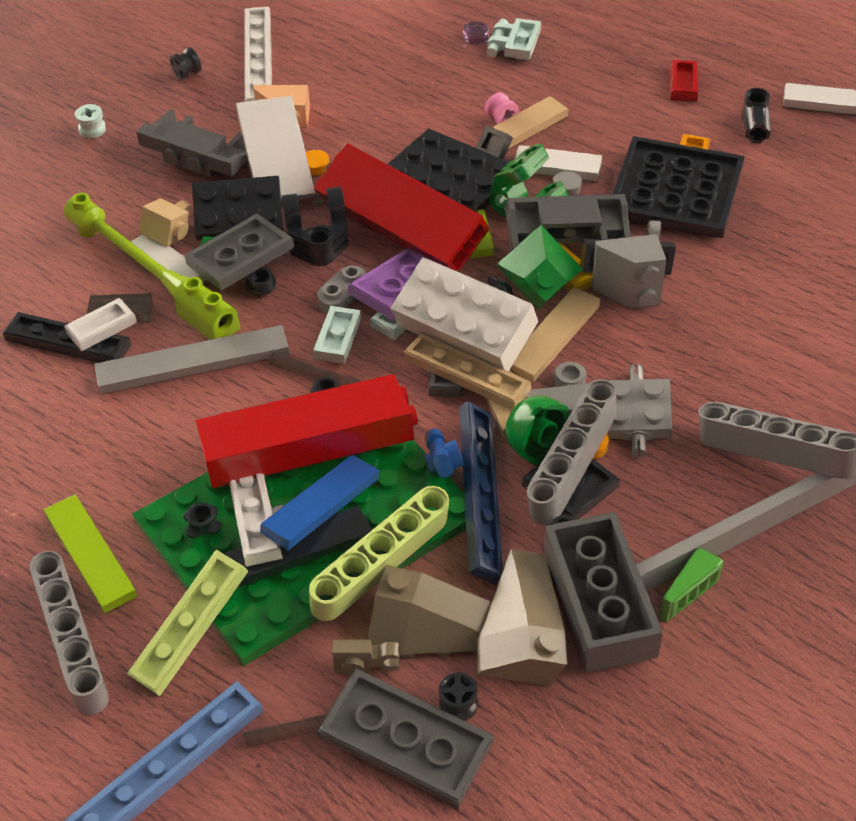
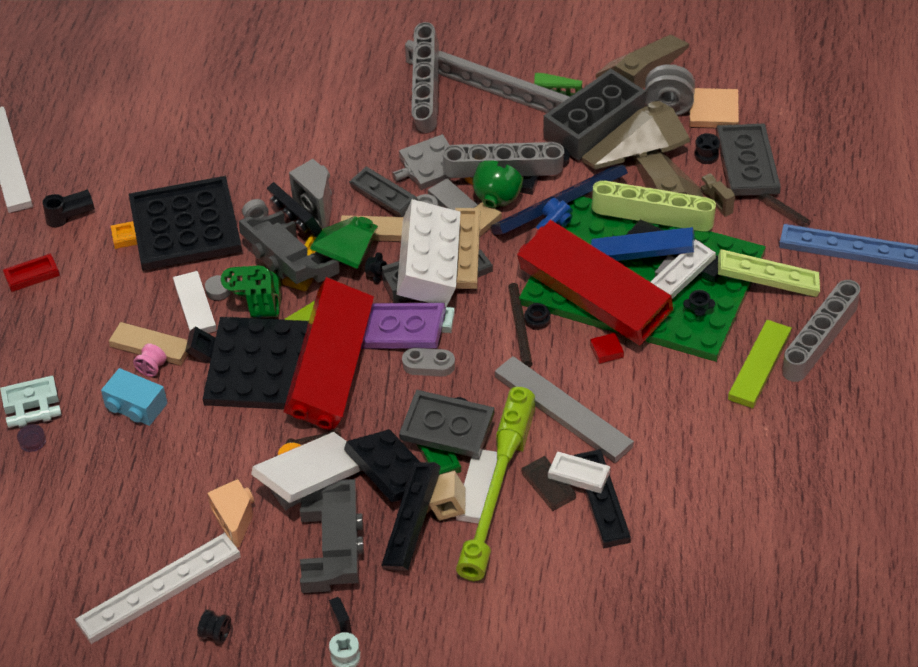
camera: 120 degrees left, 0 degrees up
(120, 126) = (339, 615): none -> black tile
(164, 189) = (411, 516): none -> black tile
(319, 243) = (386, 389): black piece -> none
(337, 334) = (480, 335): light aqua plate -> none
(464, 89) = (134, 397): none -> medium azure brick
(538, 762) = (714, 108): none -> light nougat tile
(583, 693) = (671, 86): none -> light grey wheel
(612, 345) = (382, 191): none -> dark grey tile
(691, 725) = (638, 64): none -> dark tan wedge

